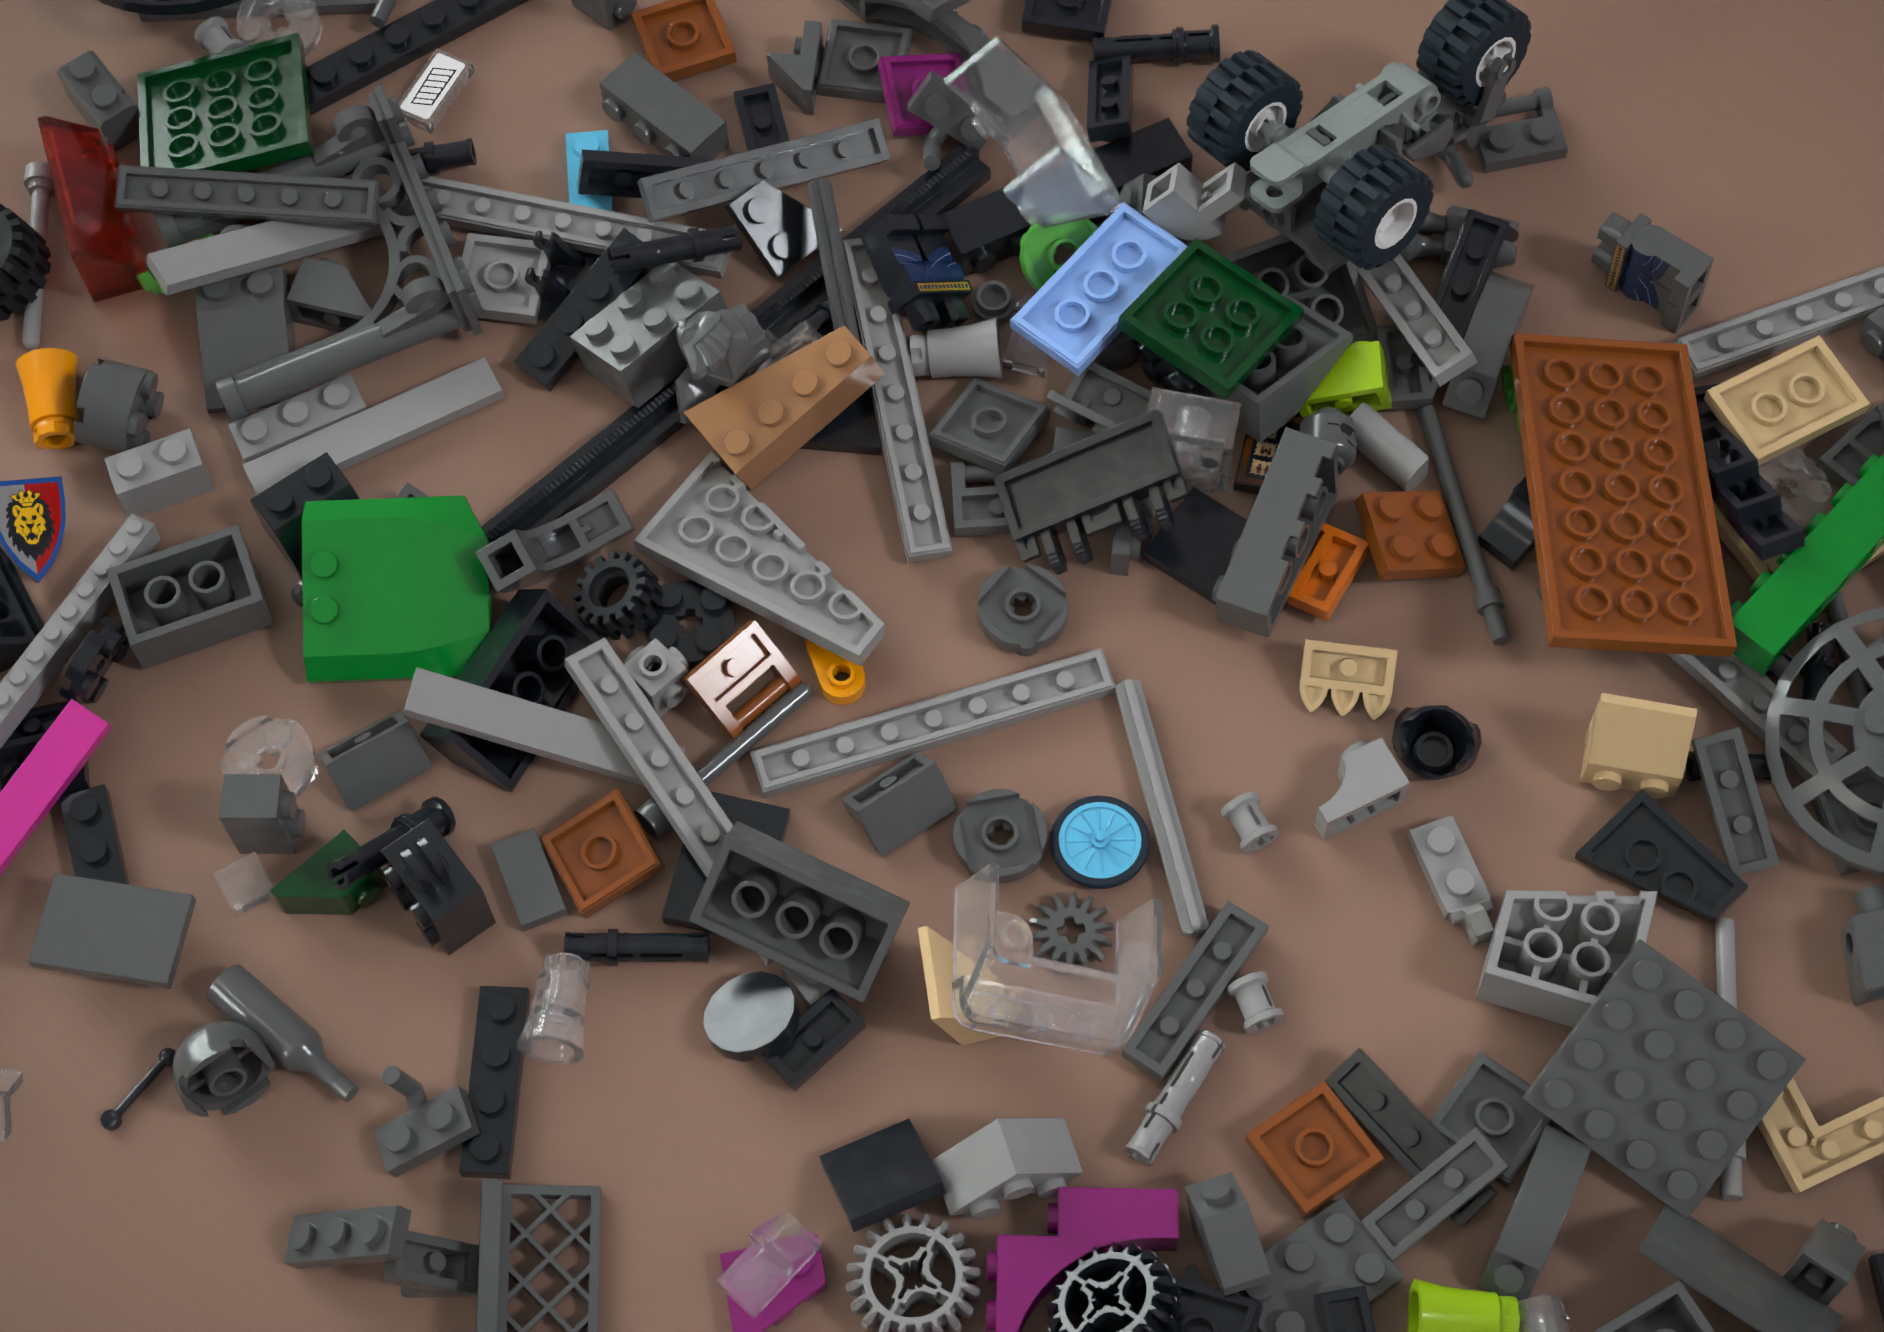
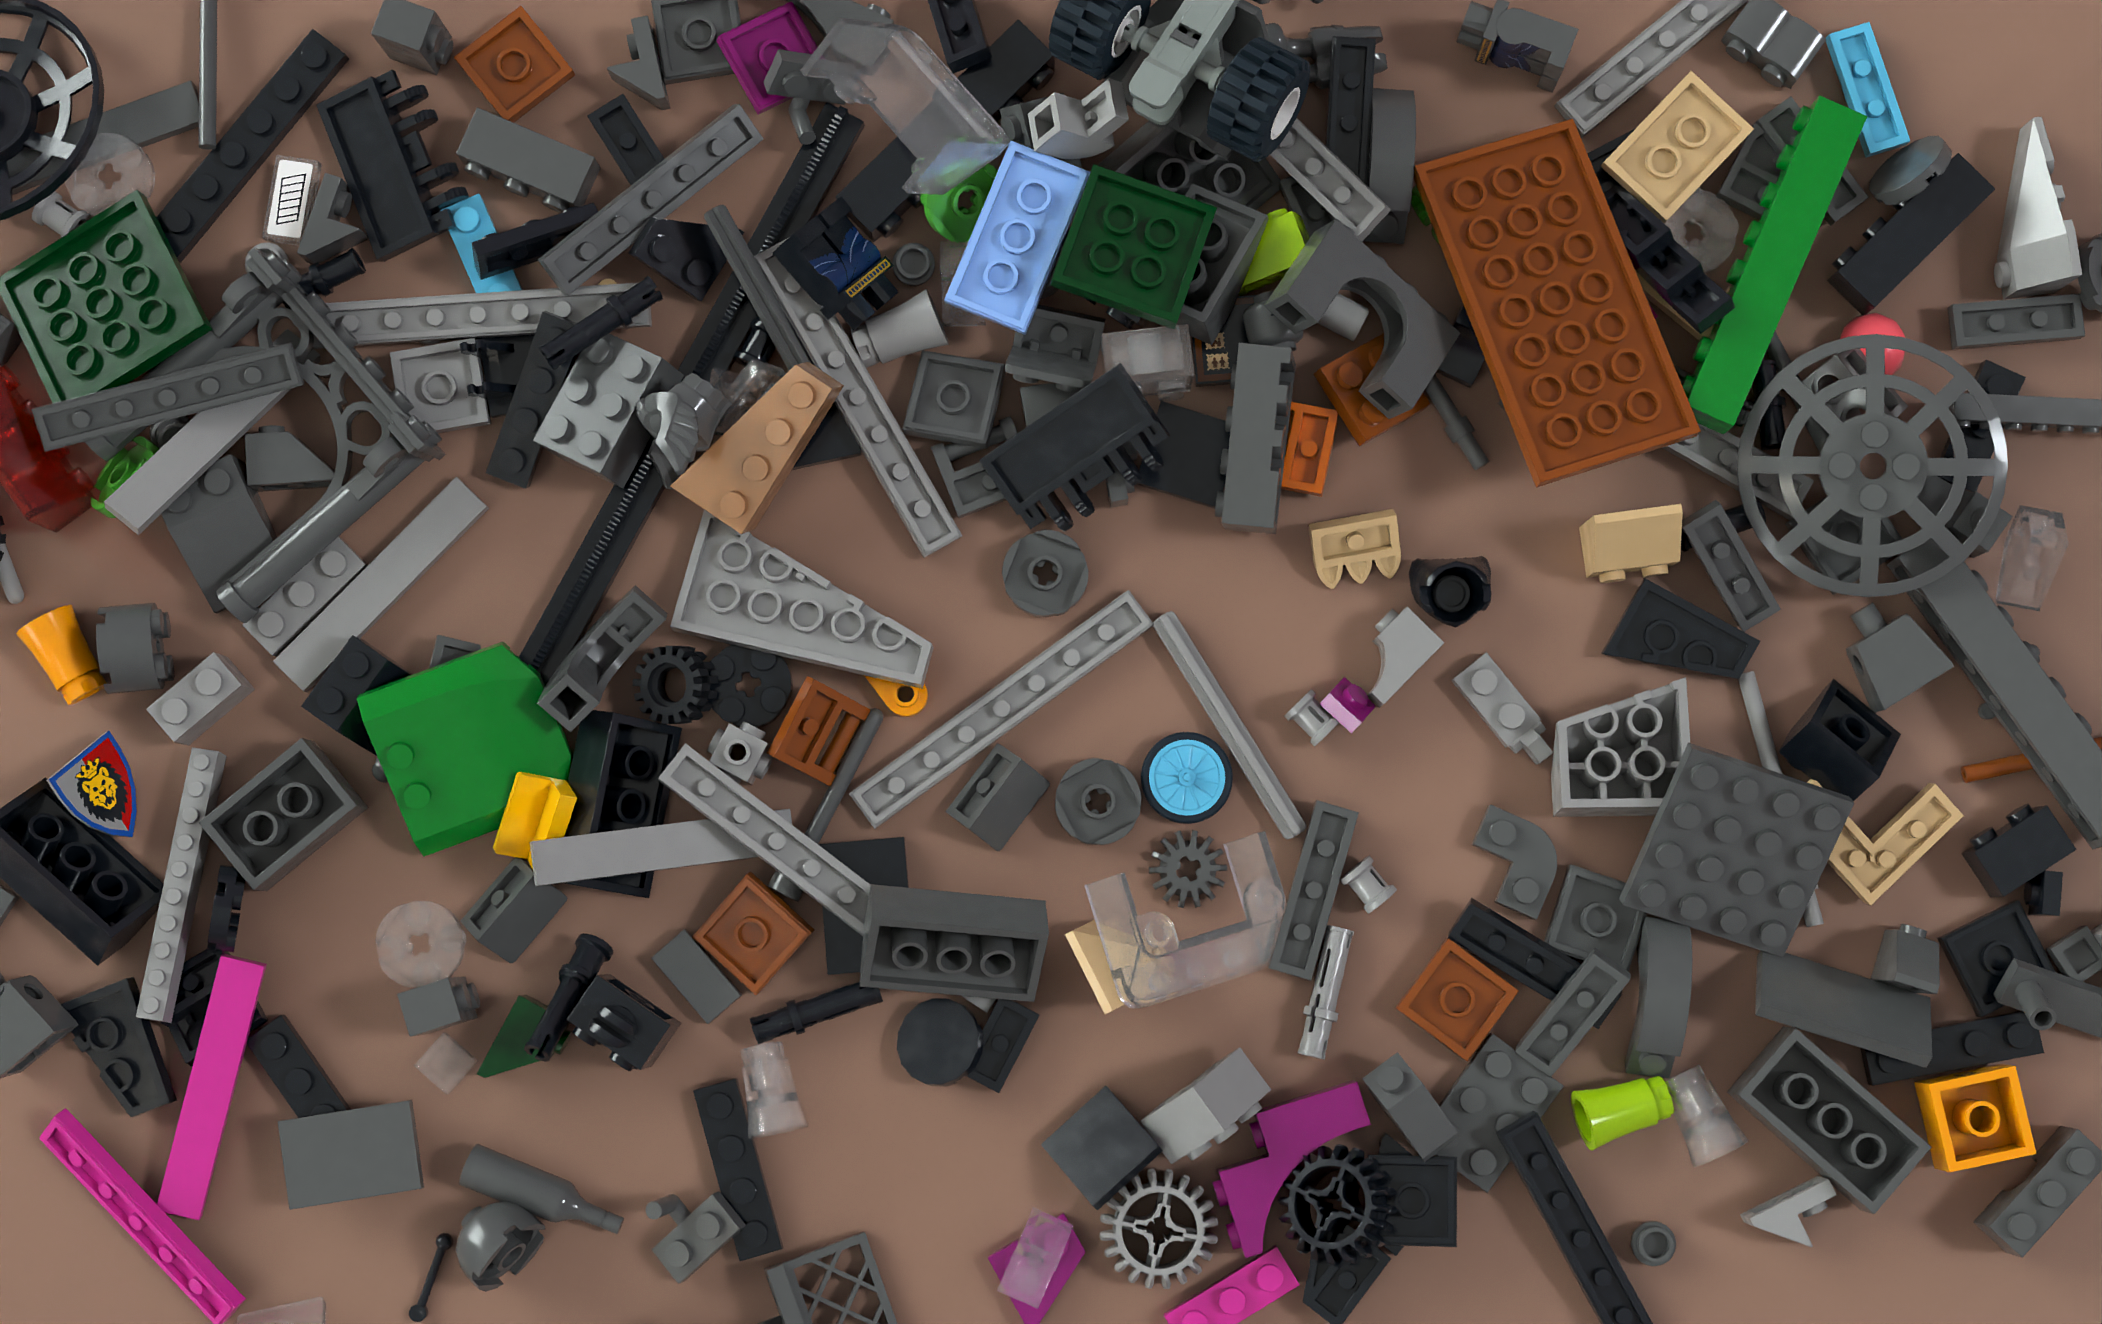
camera: 20 degrees left, 20 degrees up
(432, 651) = (535, 811): none -> yellow panel
(459, 112) = (324, 232): none -> dark grey slope
(534, 83) = (381, 163): none -> black hinge
(1291, 819) = (1348, 704): none -> magenta plate
(1414, 397) = (1414, 332): none -> dark grey arch
(1437, 1026) = (1531, 859): none -> dark grey plate
(1810, 1014) = (1840, 742): none -> black slope

